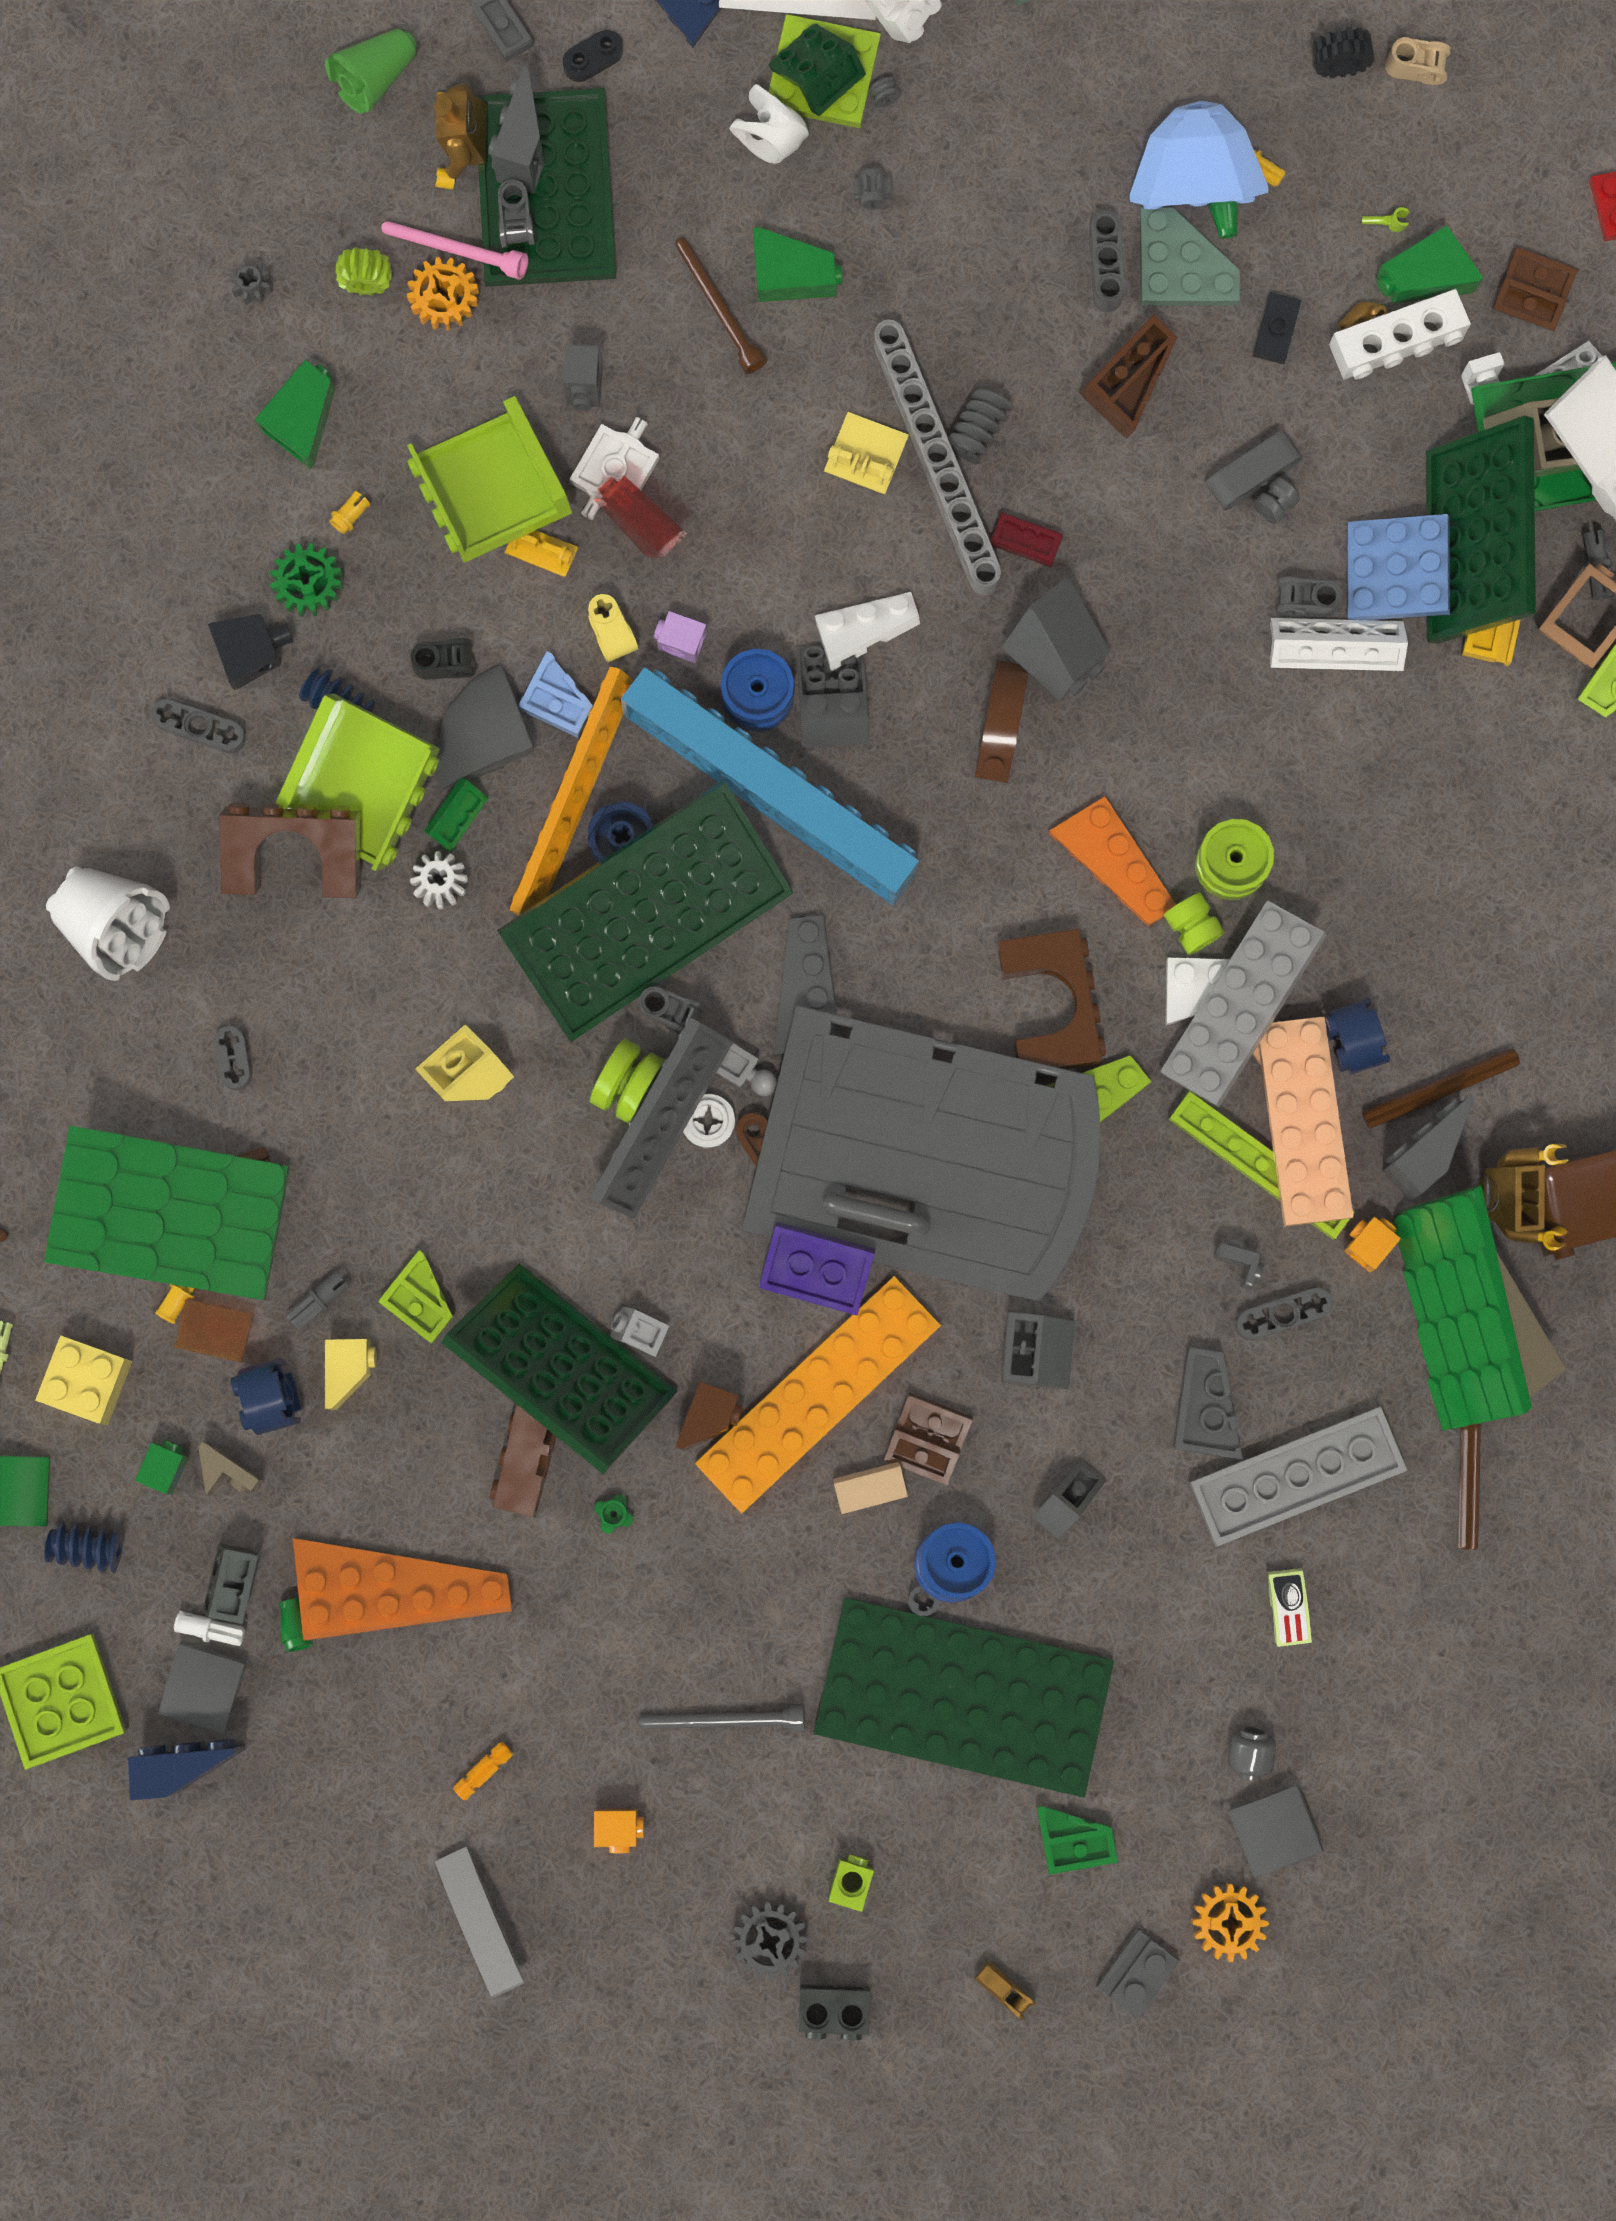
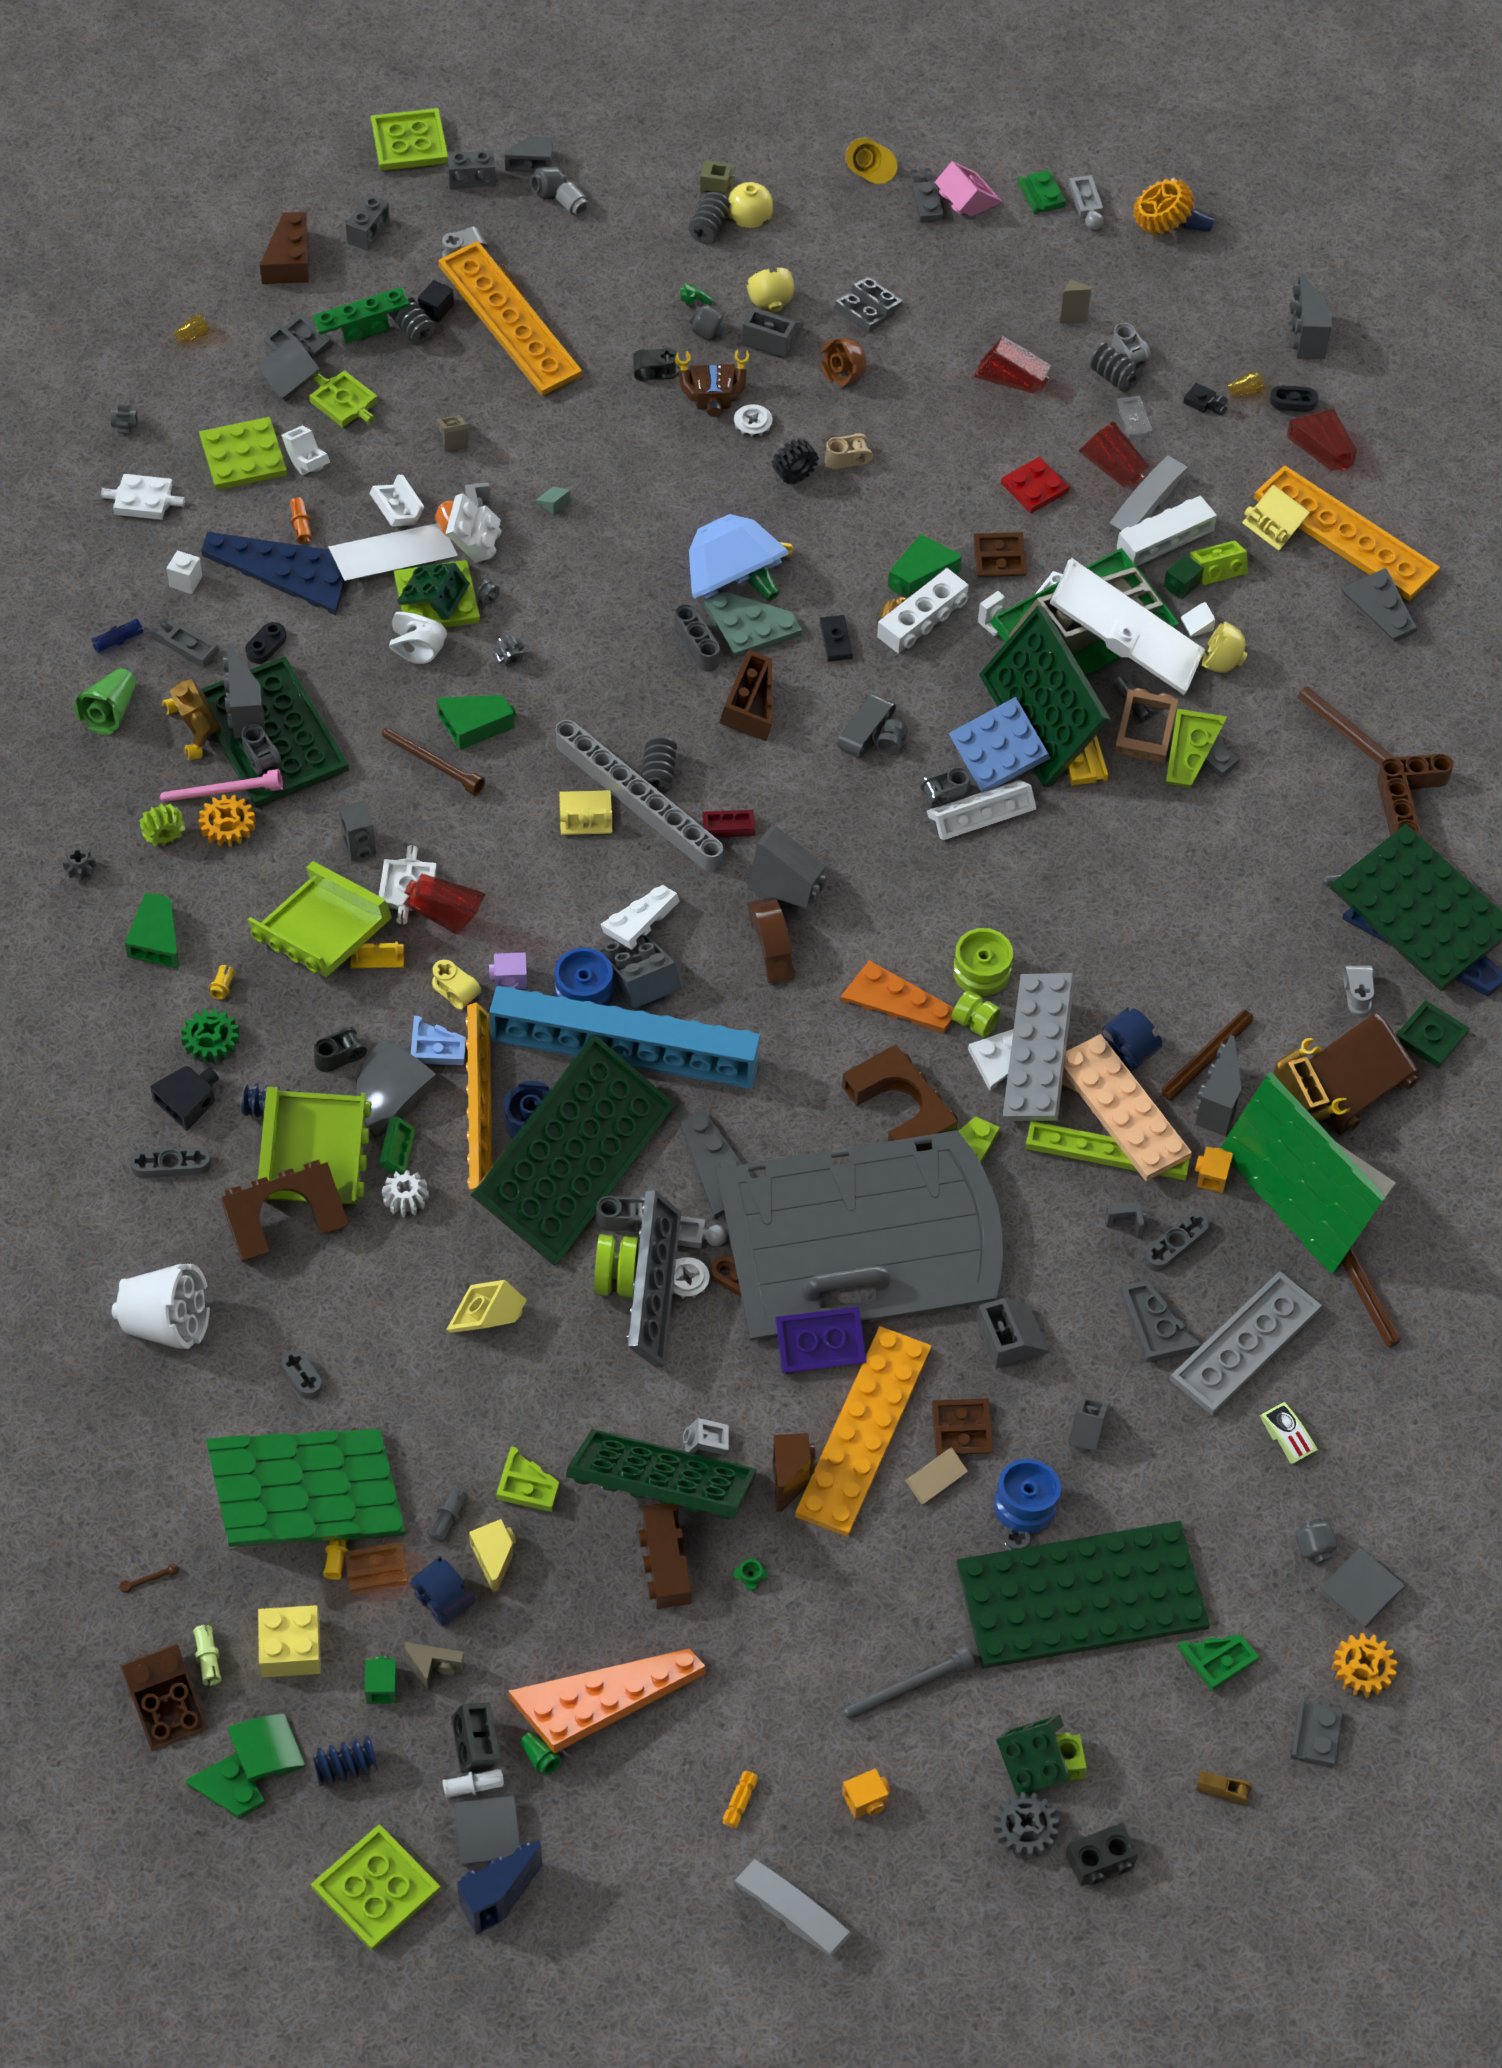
camera: 25 degrees left, 25 degrees down
(812, 1866) = (1034, 1755): none -> dark green bracket
(1389, 220) = (883, 549): lime hand -> none

